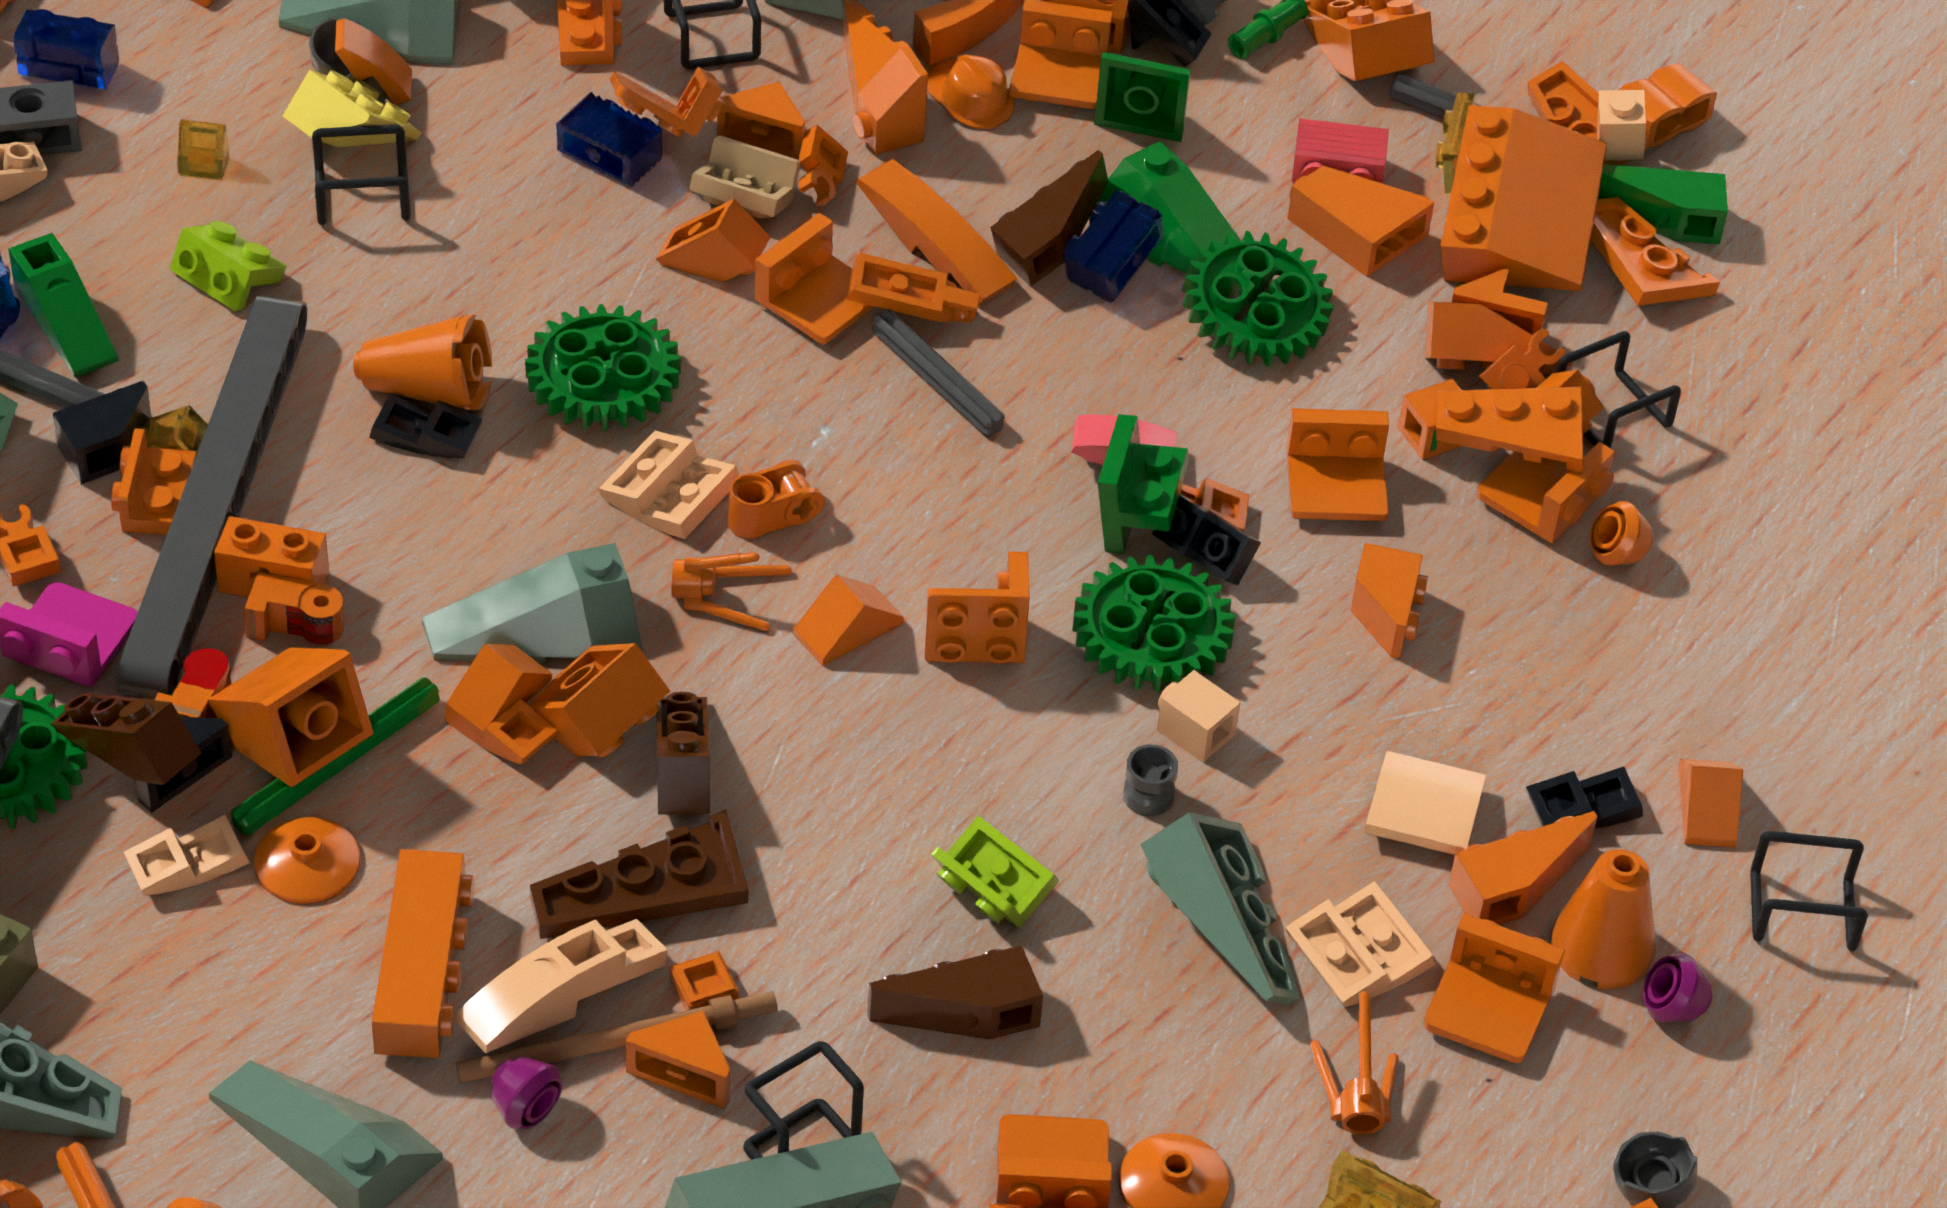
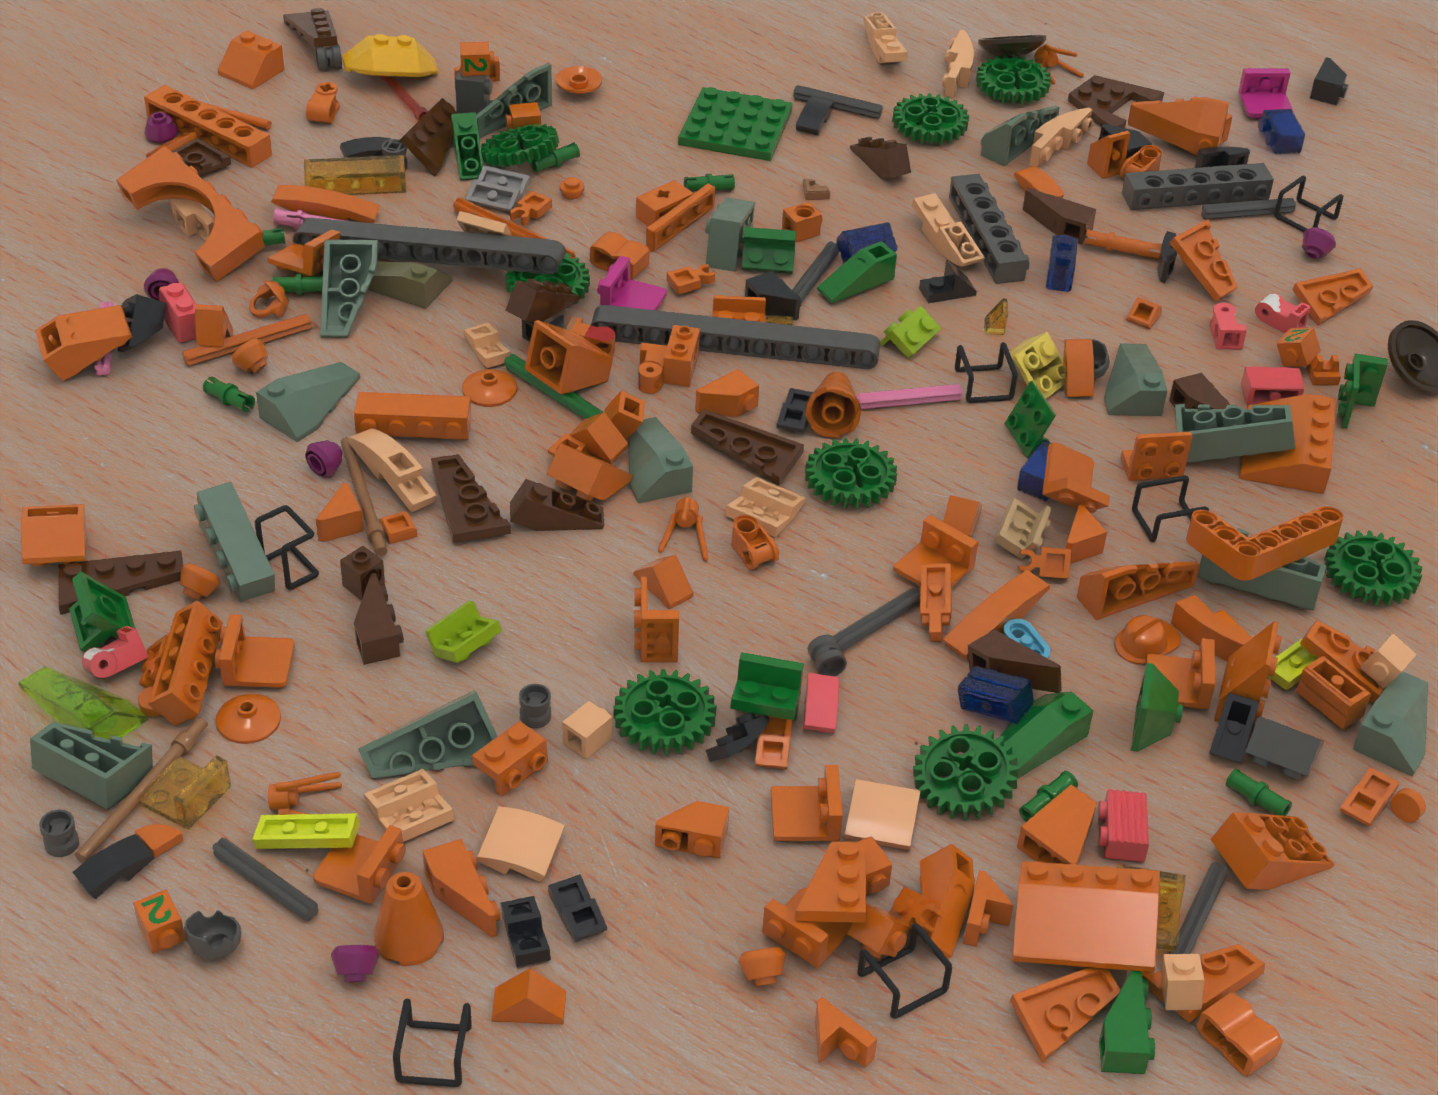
camera: 90 degrees right, 5 degrees down
(95, 208) = (948, 287): none -> black slope
(384, 504) = (728, 395): none -> orange slope
(397, 273) = (910, 396): none -> bright pink axle
(450, 642) = (626, 413): none -> orange brick
(503, 132) = (1030, 419): none -> green hinge
(518, 490) = (753, 447): none -> reddish brown wing
(847, 1014) = (357, 570): none -> reddish brown brick
(987, 206) = (1025, 634): none -> medium azure plate
(1029, 428) = (826, 655): none -> dark grey wheel
(1265, 804) = (512, 757): none -> orange bracket
(1290, 224) = (1046, 794): none -> green pin
(1330, 382) = (883, 813): none -> light nougat slope
(1441, 1063) = (306, 831): none -> neon yellow plate
(1523, 1125) = (265, 879): none -> dark grey axle
(1543, 742) = (576, 908): none -> black slope
(1723, 472) = (838, 1030): none -> orange slope

